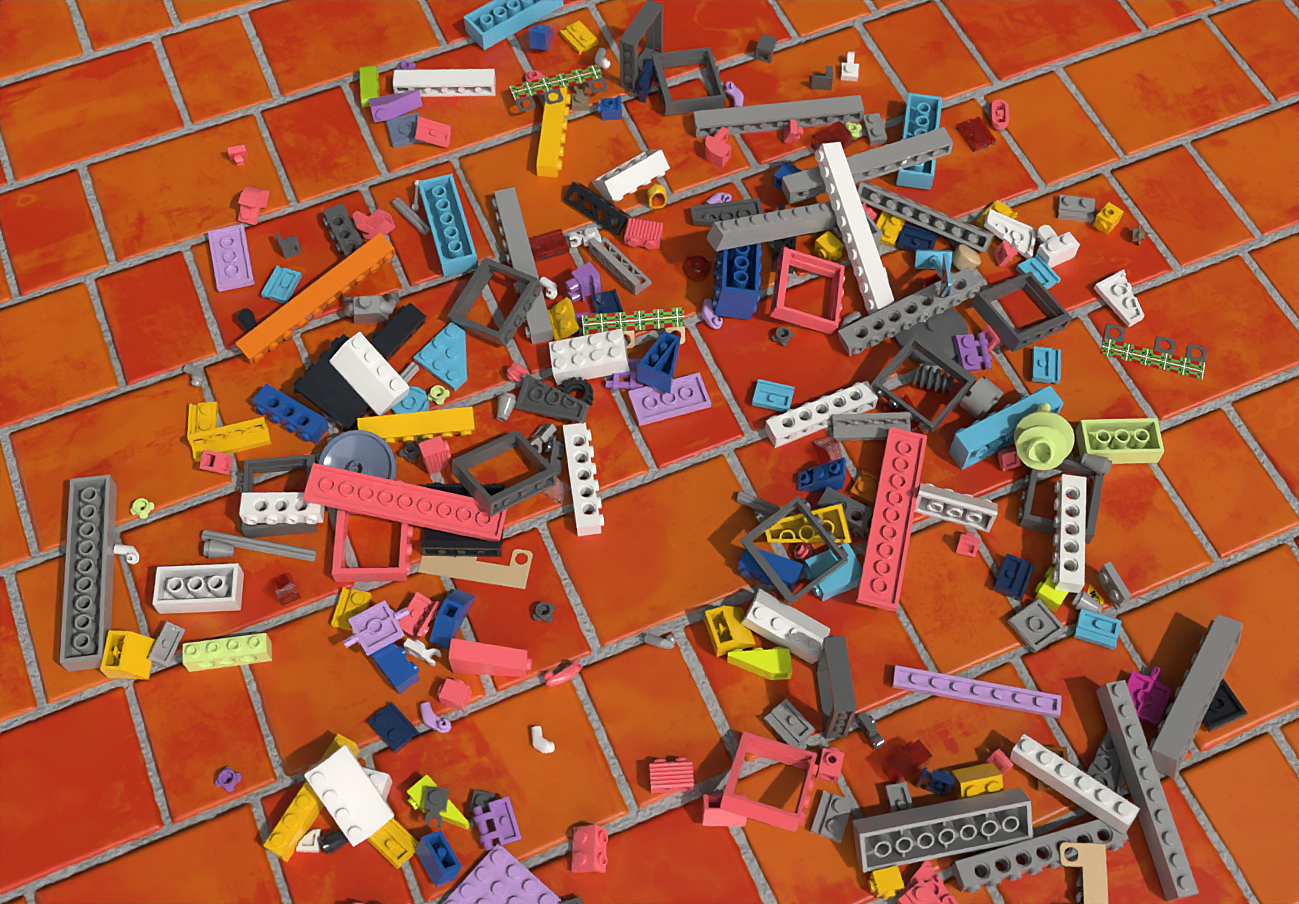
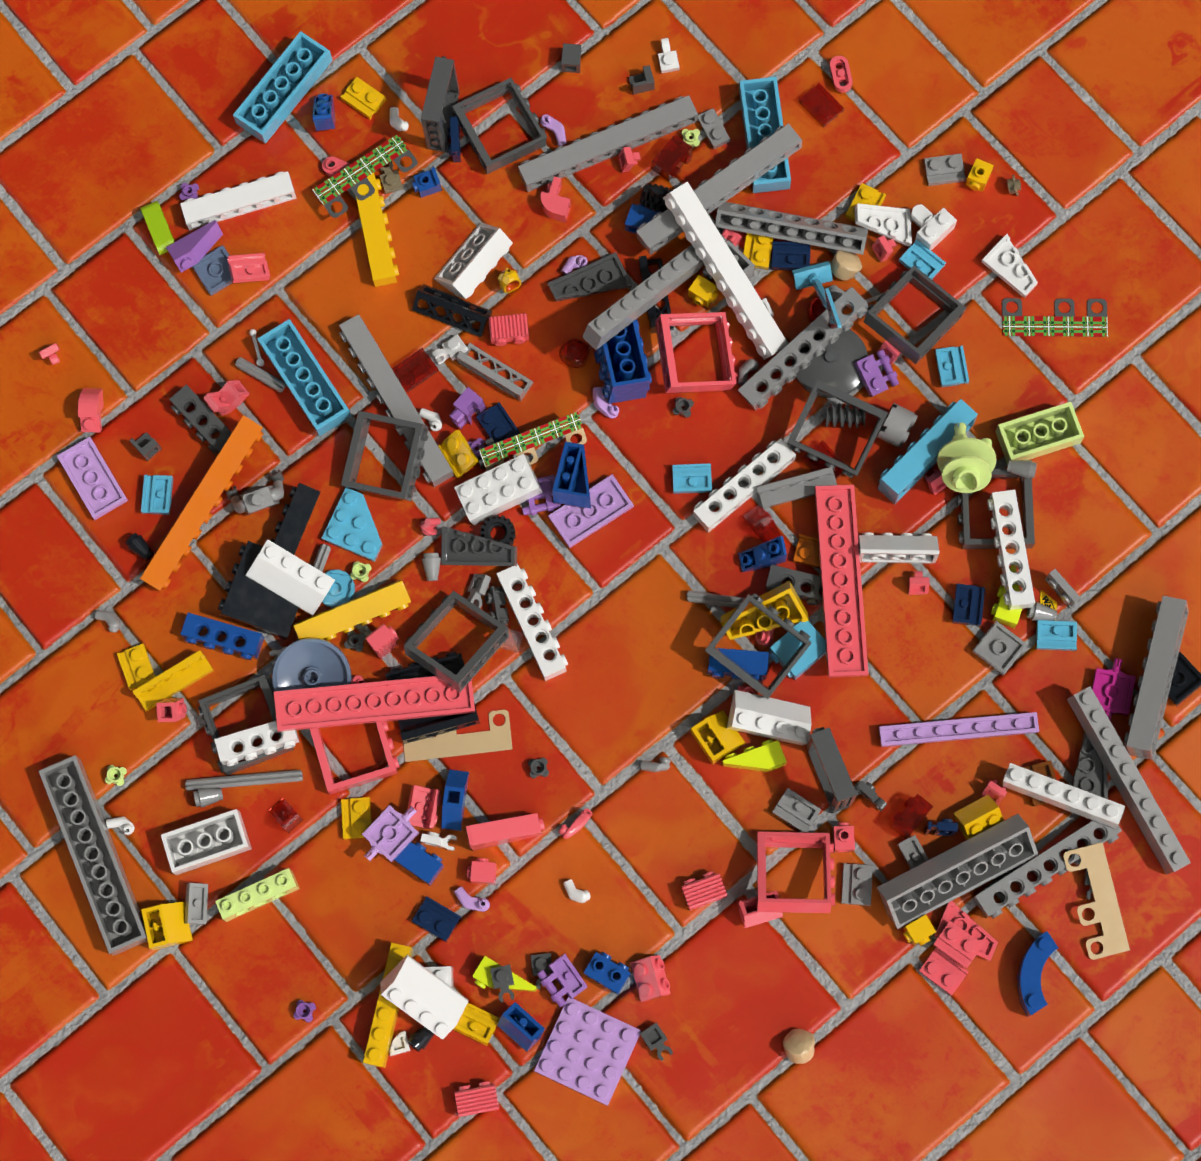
camera: 10 degrees left, 15 degrees up
(546, 830) = (607, 973): none -> blue brick
(805, 161) = (653, 196): none -> black tyre

